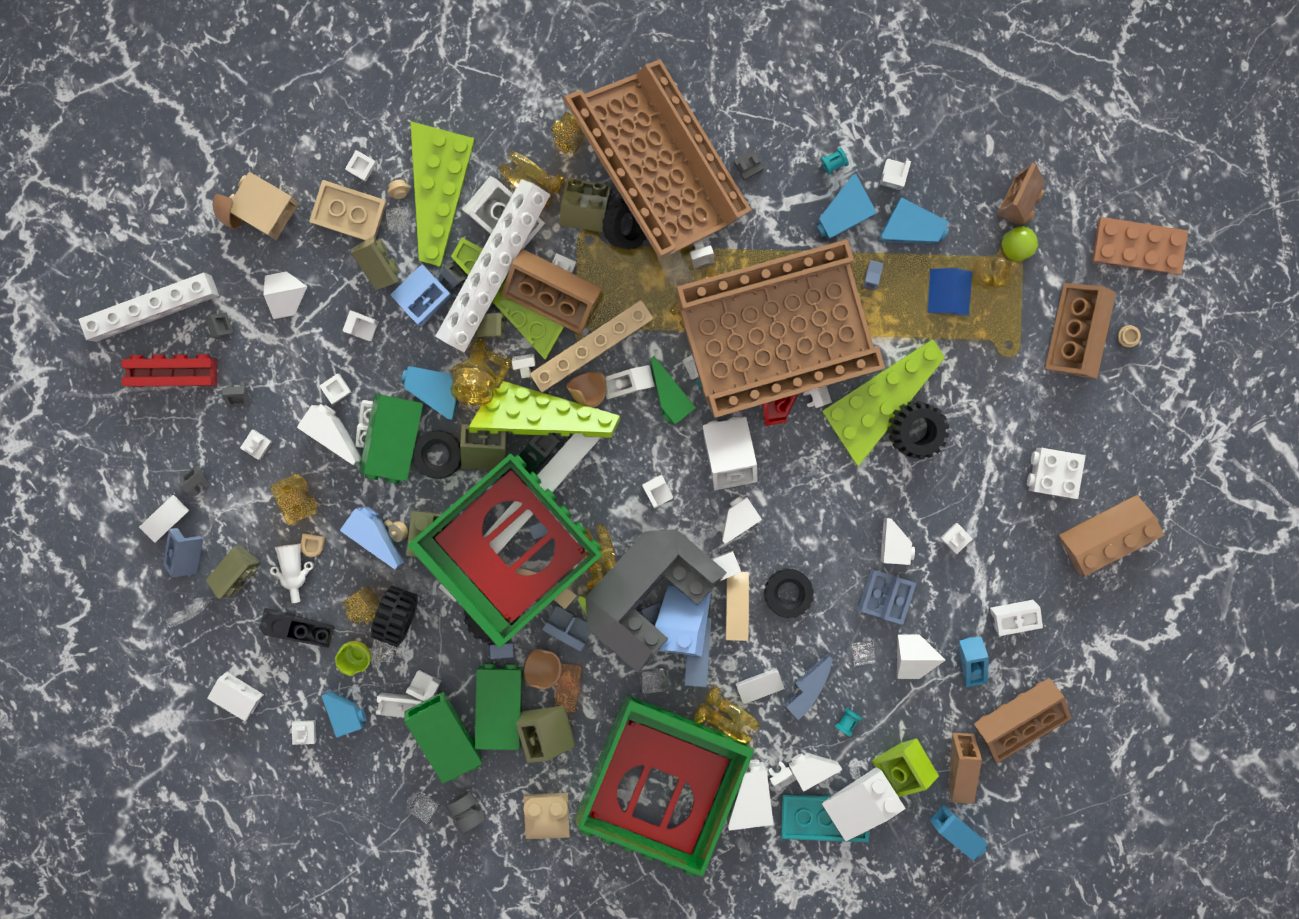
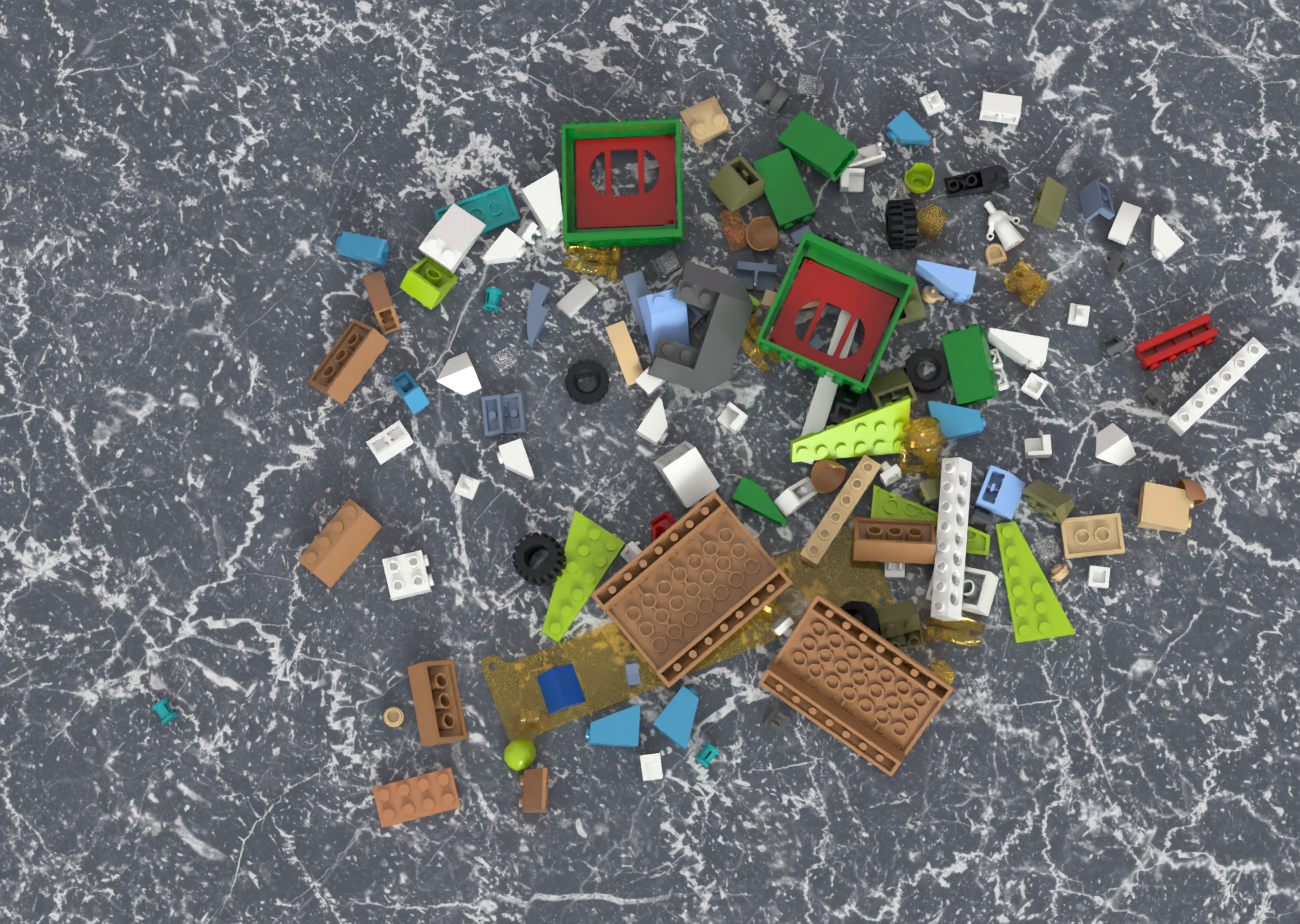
camera: 160 degrees right, 10 degrees down
(132, 483) = (1163, 240): none -> white slope

